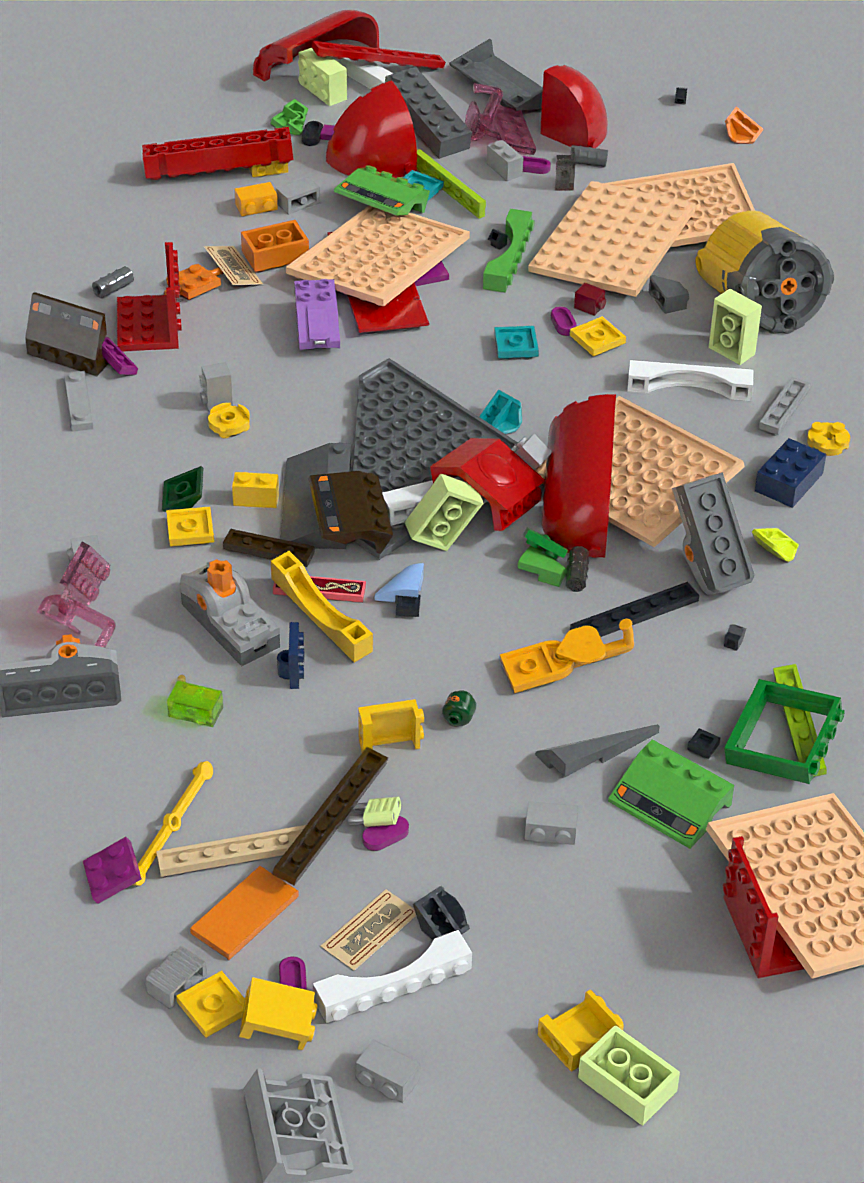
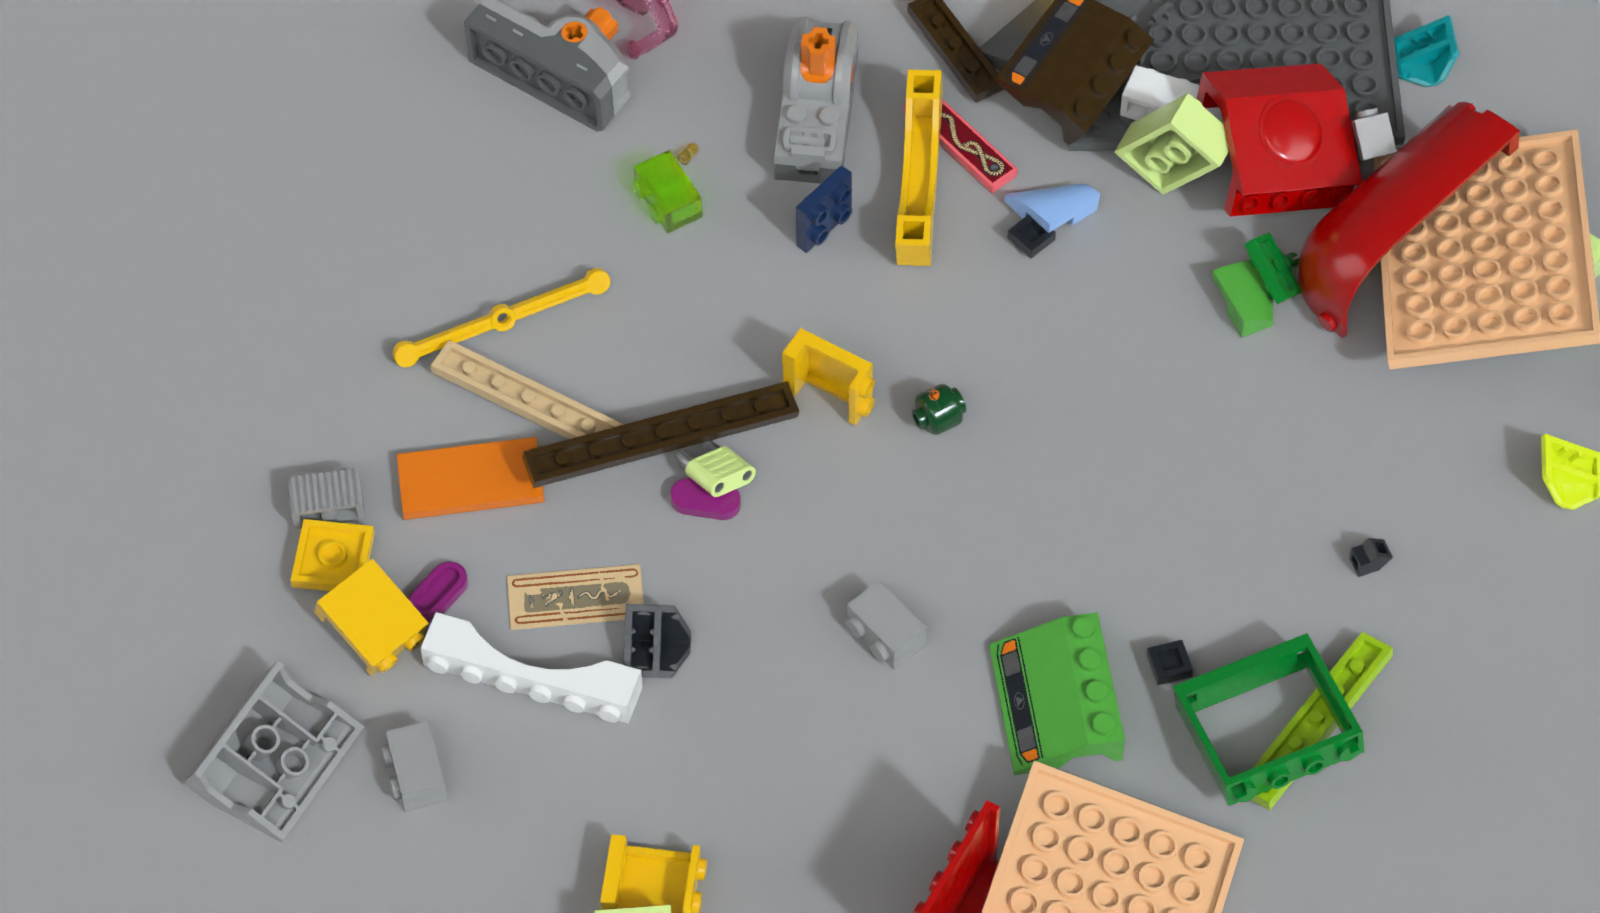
camera: 45 degrees right, 15 degrees up
(112, 870) = (384, 328): magenta plate -> none
(557, 659) = (1090, 417): light orange plate -> none
(576, 755) = (1009, 564): dark grey wedge -> none
(577, 568) = (1280, 330): clear smoke axle -> none
(641, 609) = (1290, 437): black tile -> none
(713, 535) = (1455, 406): piece -> none

